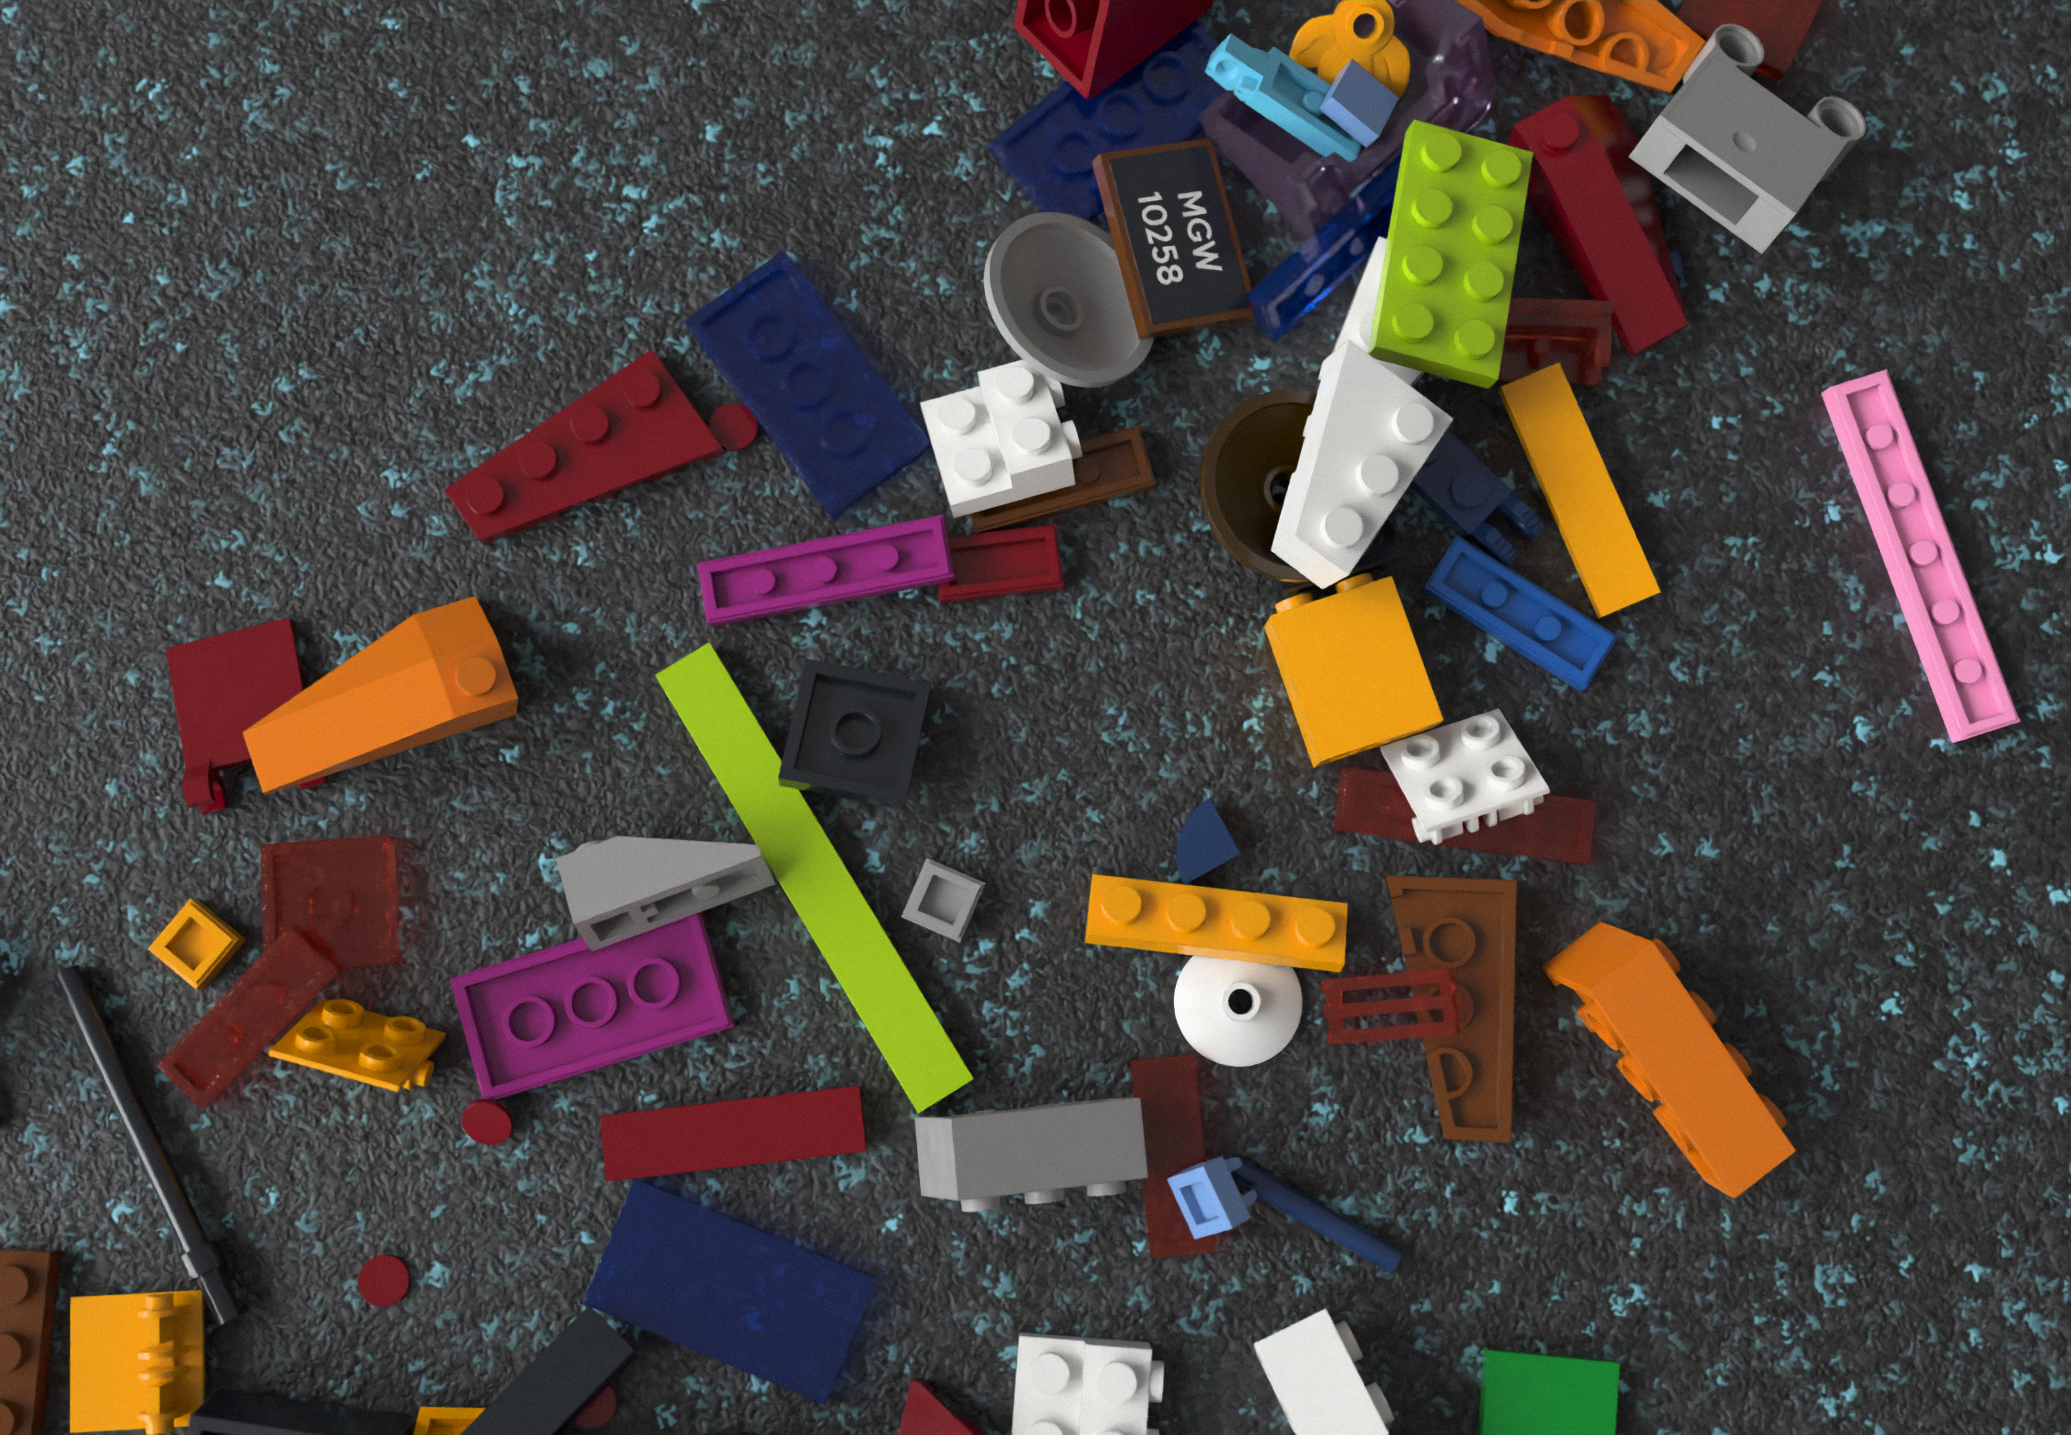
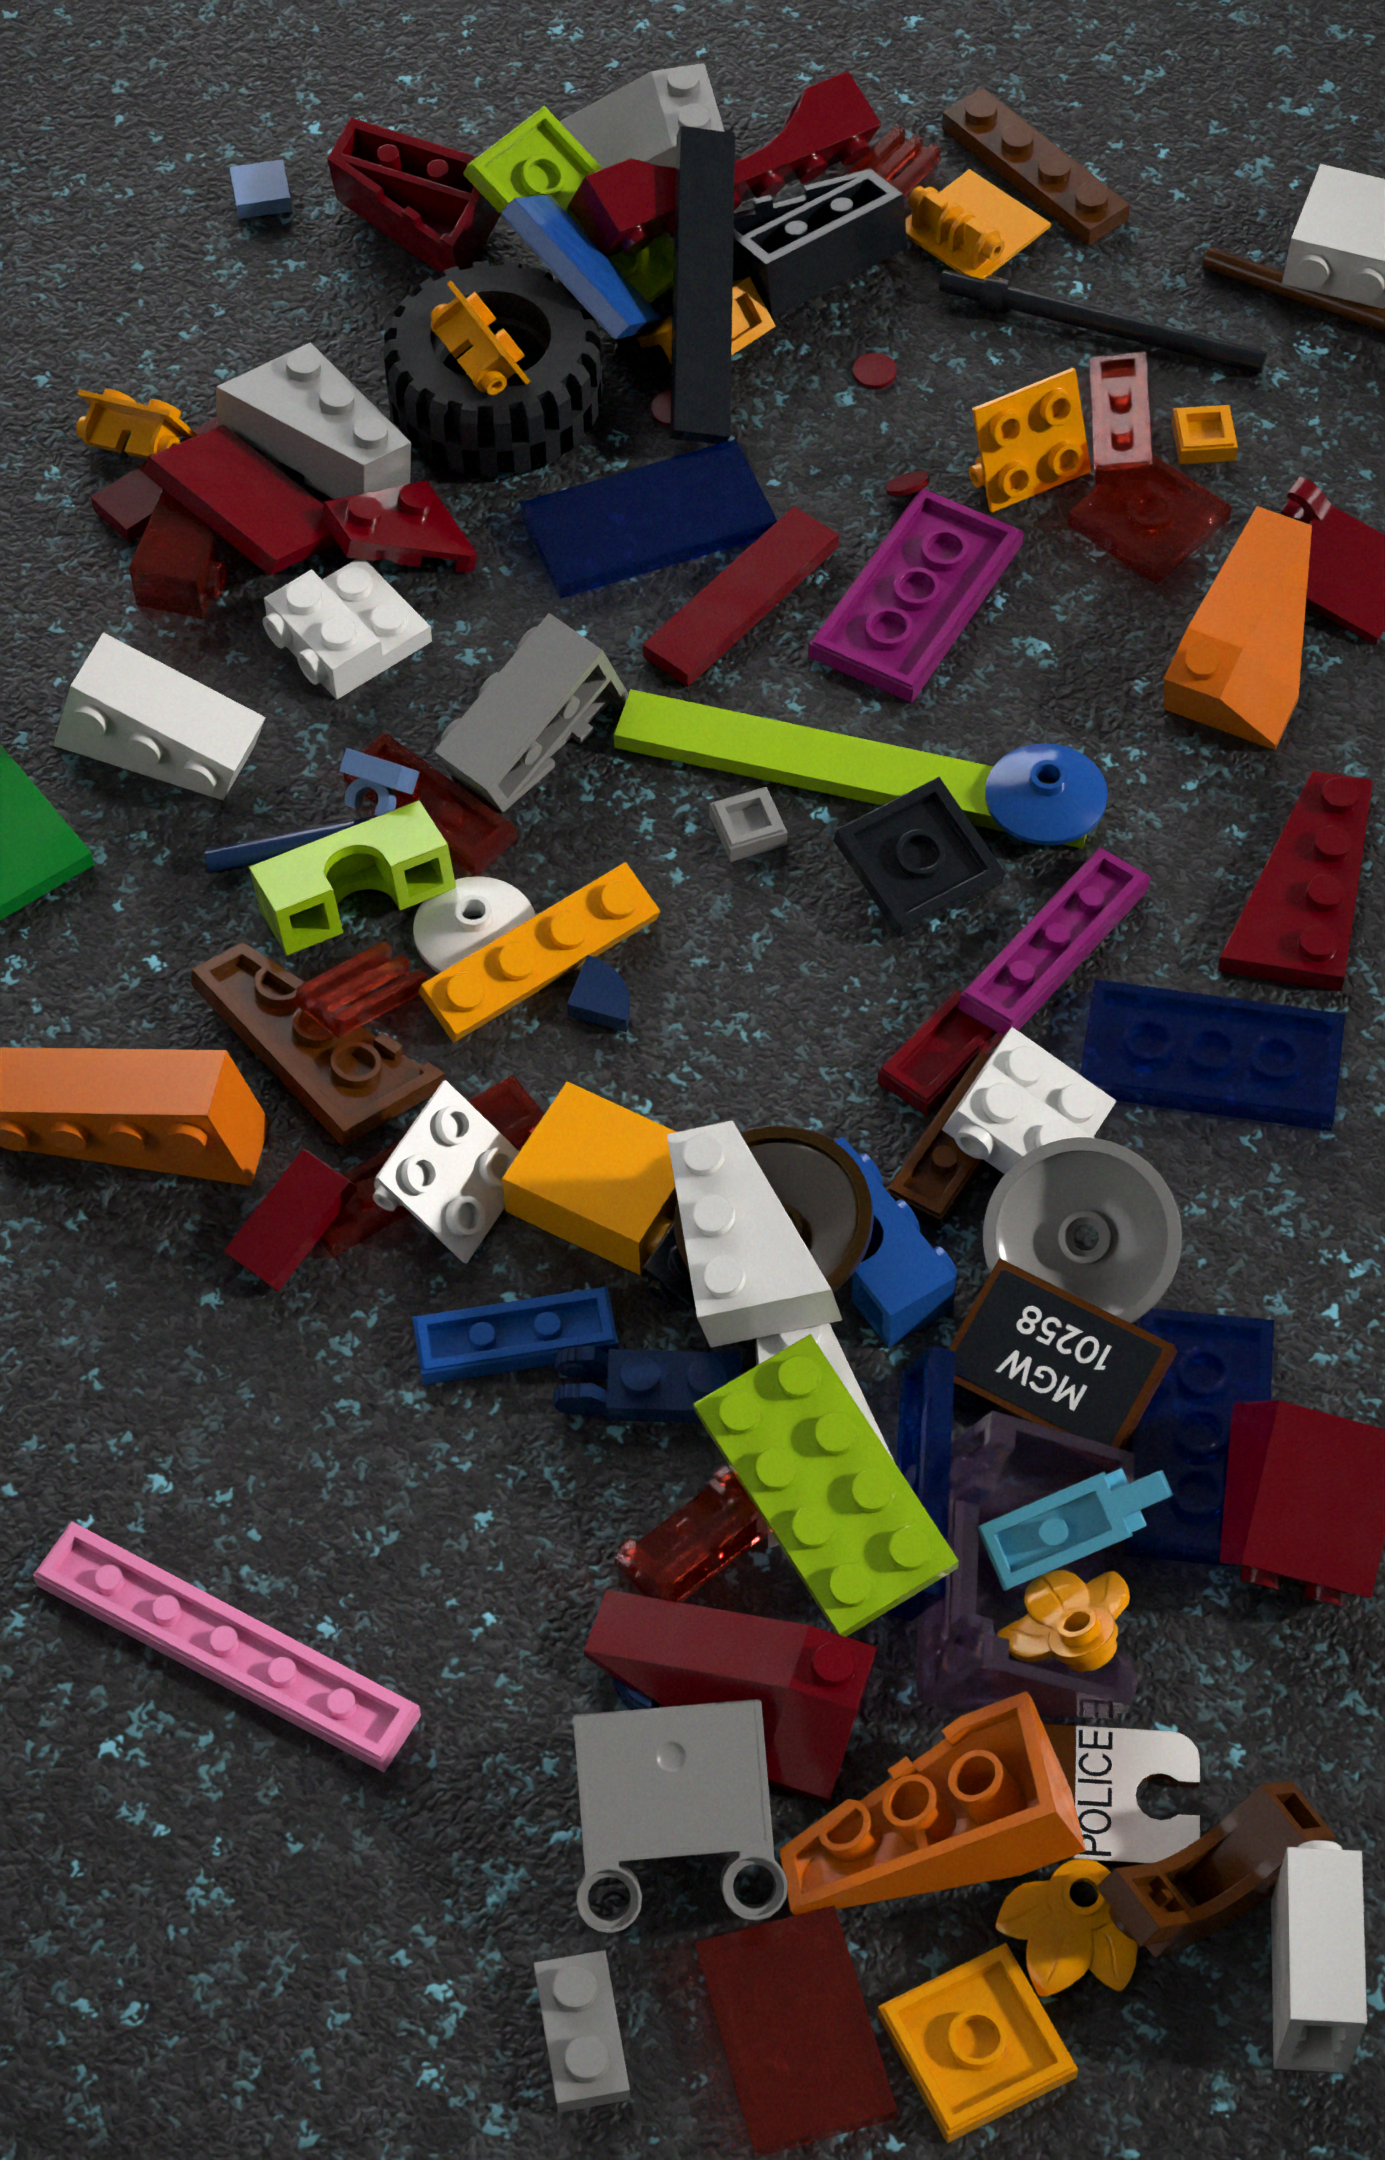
camera: 140 degrees right, 25 degrees down
(645, 883) = (962, 657): light grey slope -> none
(719, 729) = (1043, 811): none -> blue dish
(733, 427) = (1231, 983): dark red piece -> none
(1209, 391) = (906, 1278): none -> blue arch
(1359, 103) = (1019, 1566): medium blue tile -> none
(1360, 1146) = (388, 853): none -> lime arch
(1578, 490) = (554, 1453): light orange tile -> none
(1613, 844) = (290, 1219): none -> dark red tile
(1903, 87) = (582, 2031): none -> light grey plate

